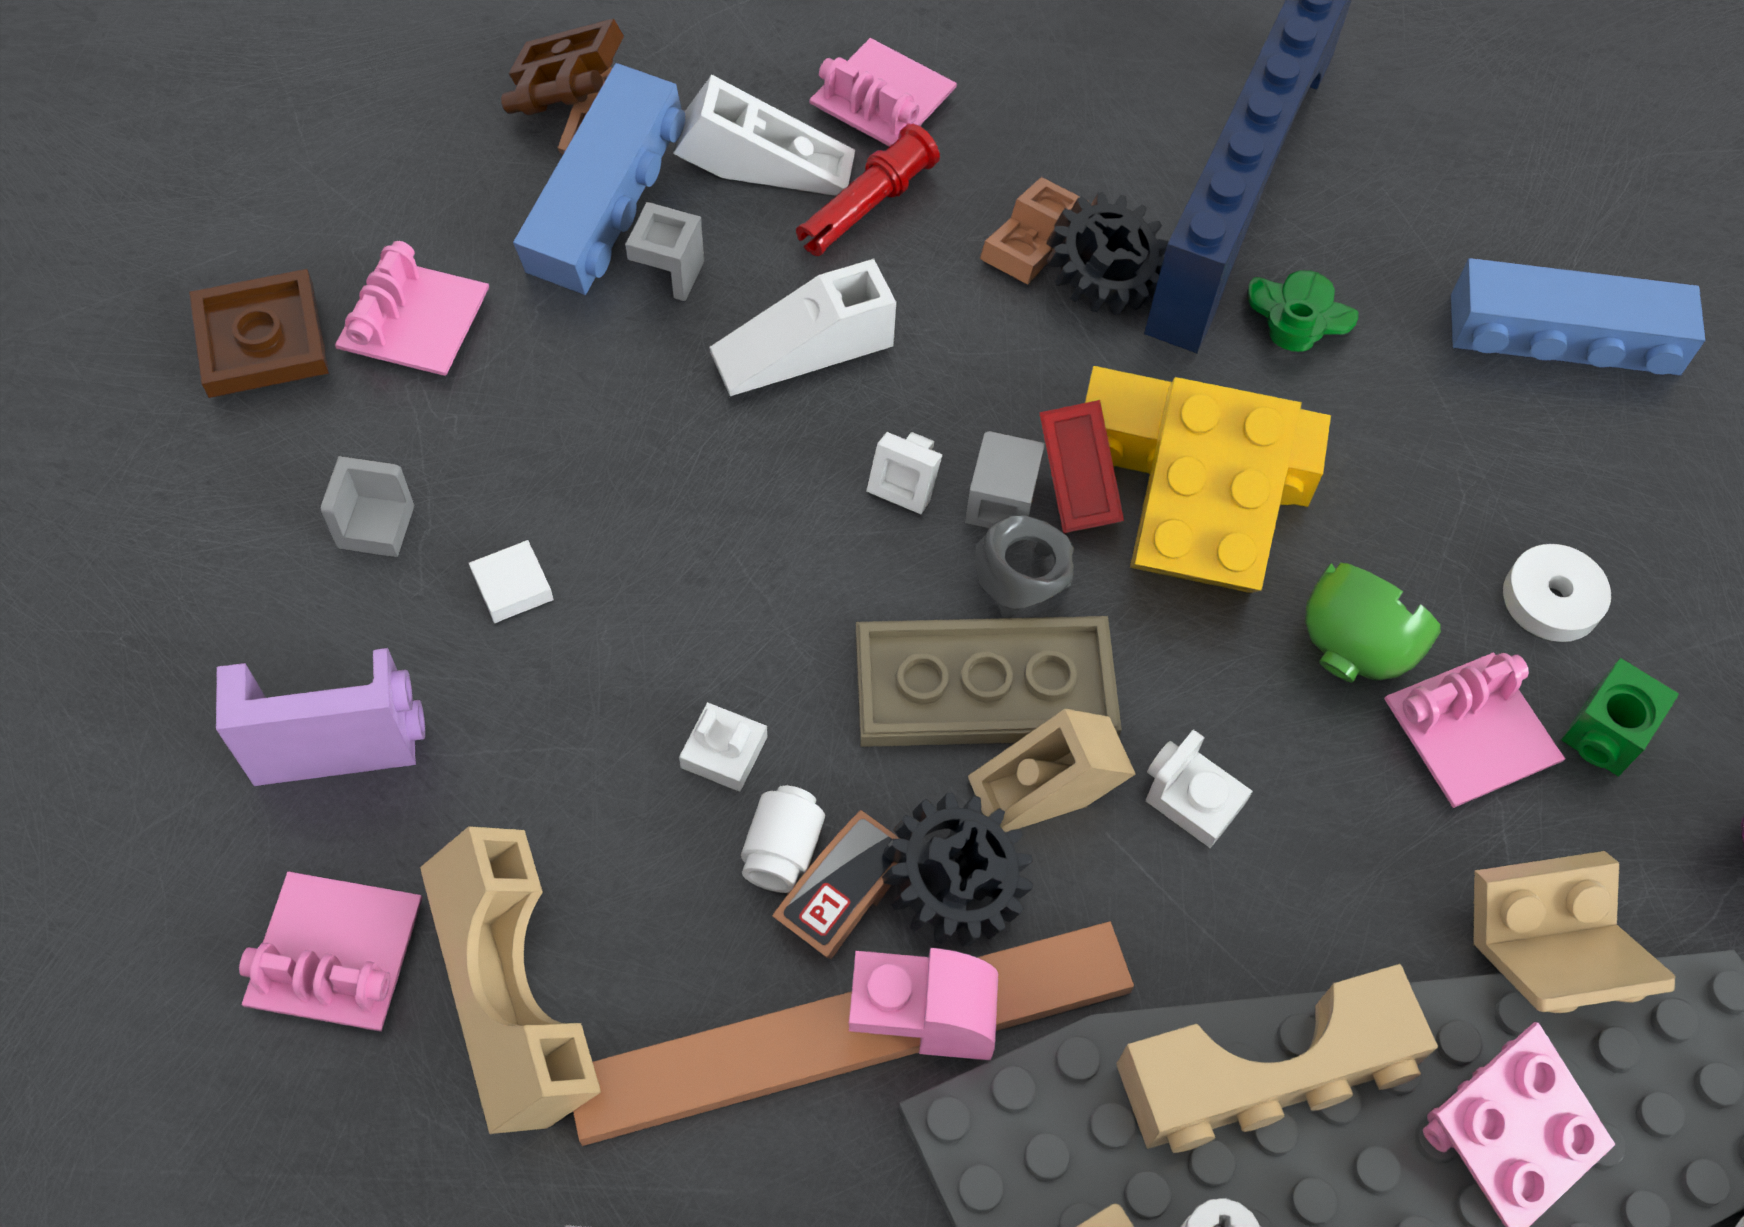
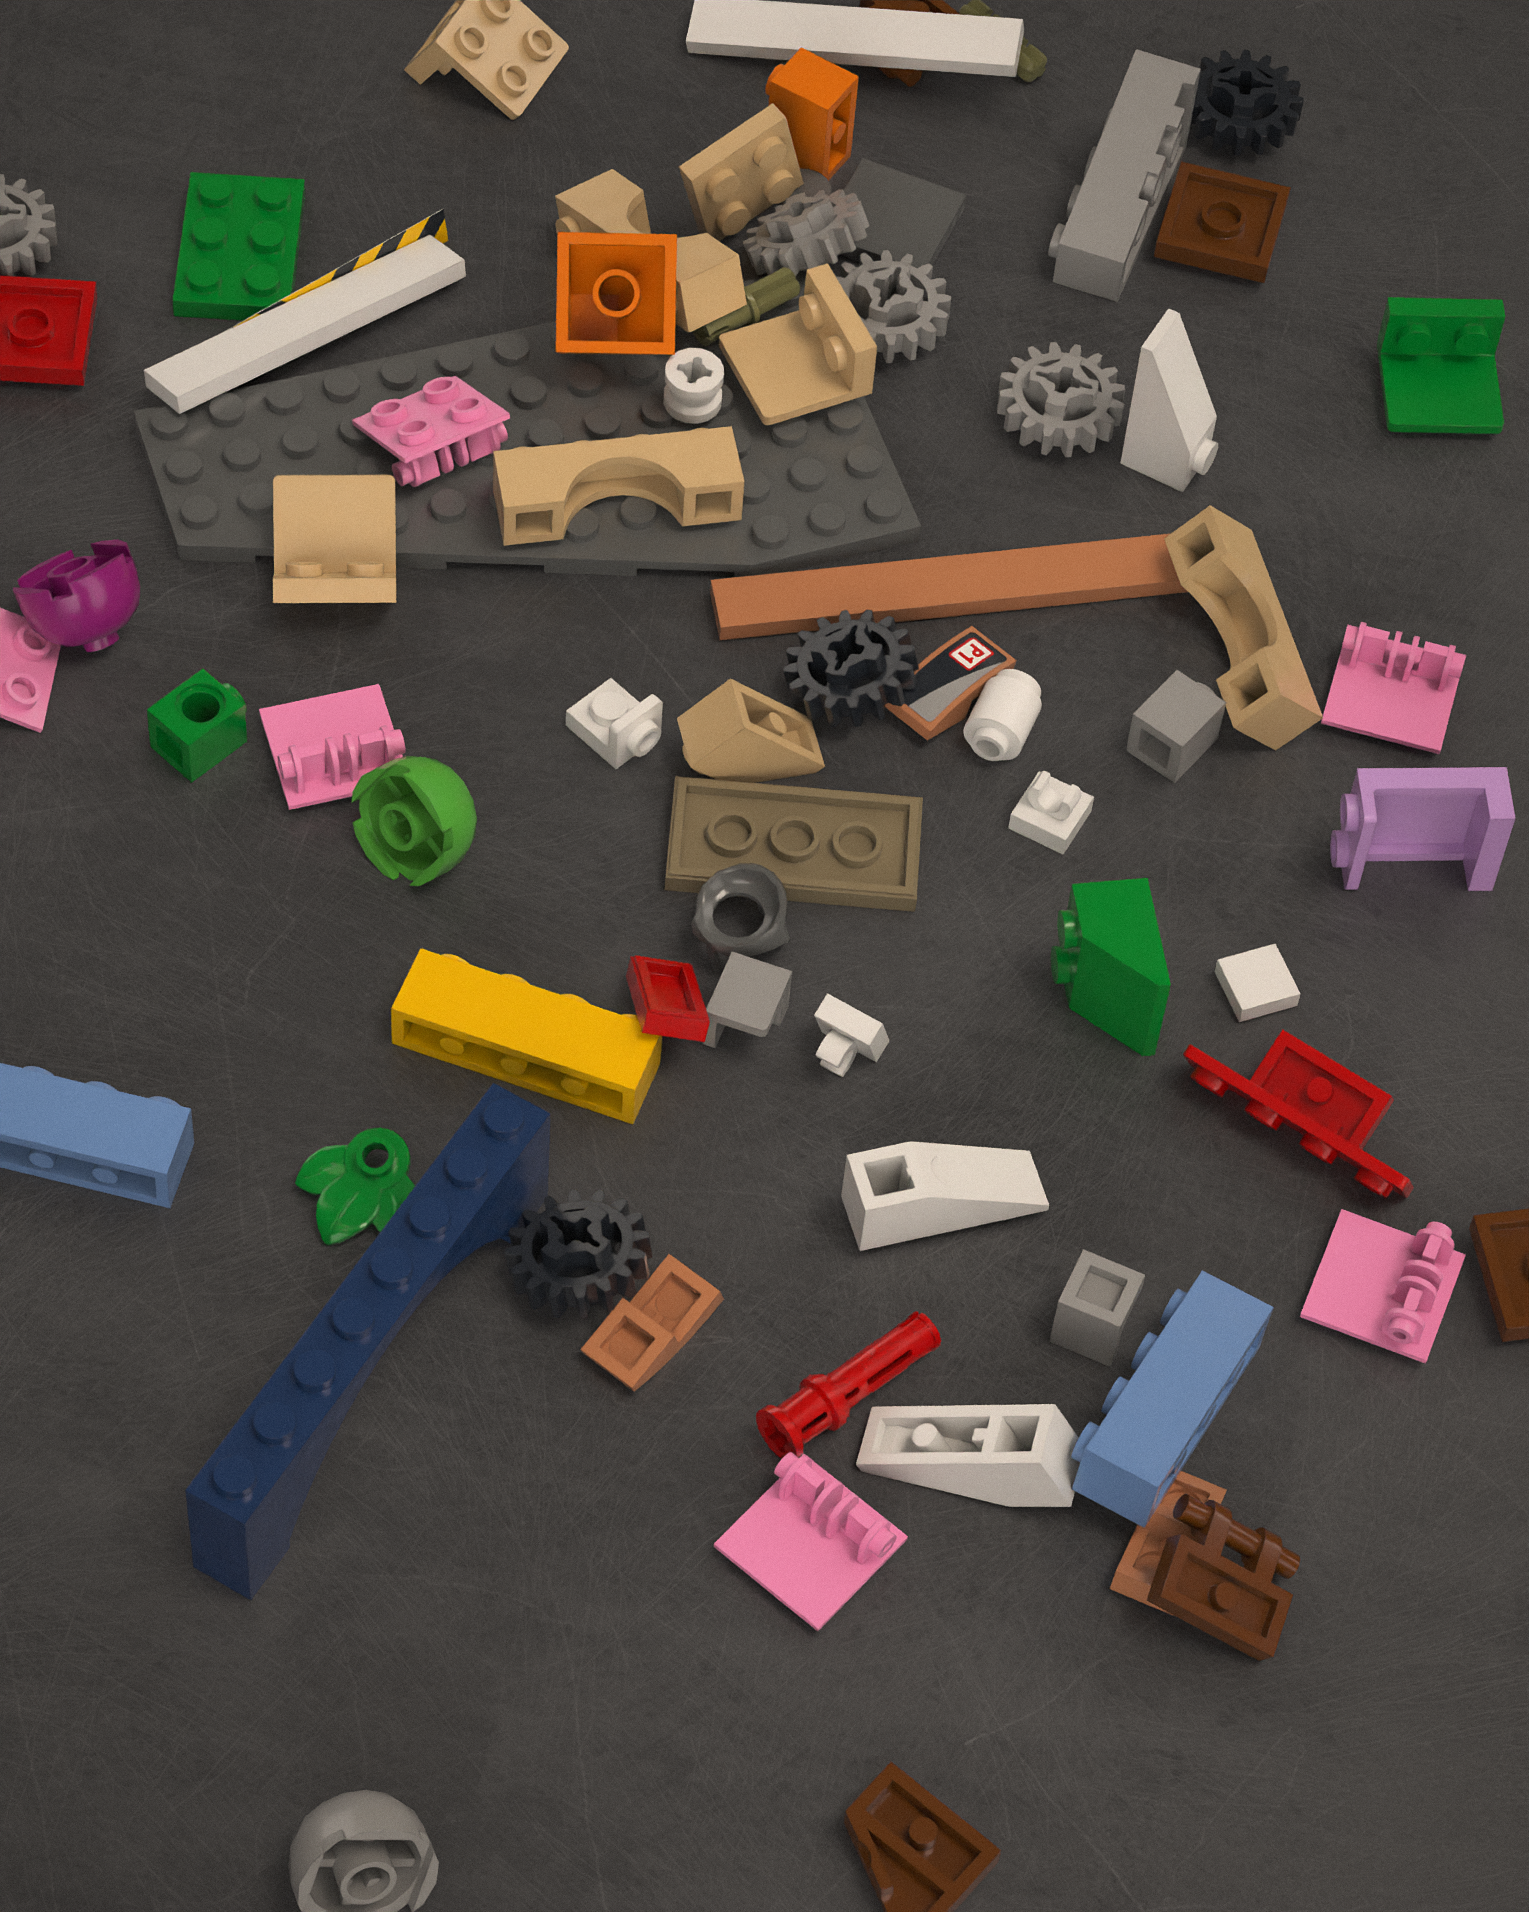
camera: 175 degrees left, 5 degrees down
(367, 506) = (1405, 1058): light grey panel -> none
(472, 446) = (1316, 1098): none -> red bracket
(587, 851) = (1176, 726): none -> light grey brick
(660, 534) = (1114, 960): none -> green slope
(937, 998) = (889, 539): bright pink brick -> none
(1215, 485) = (543, 931): yellow brick -> none
(1546, 614) = (193, 836): white piece -> none

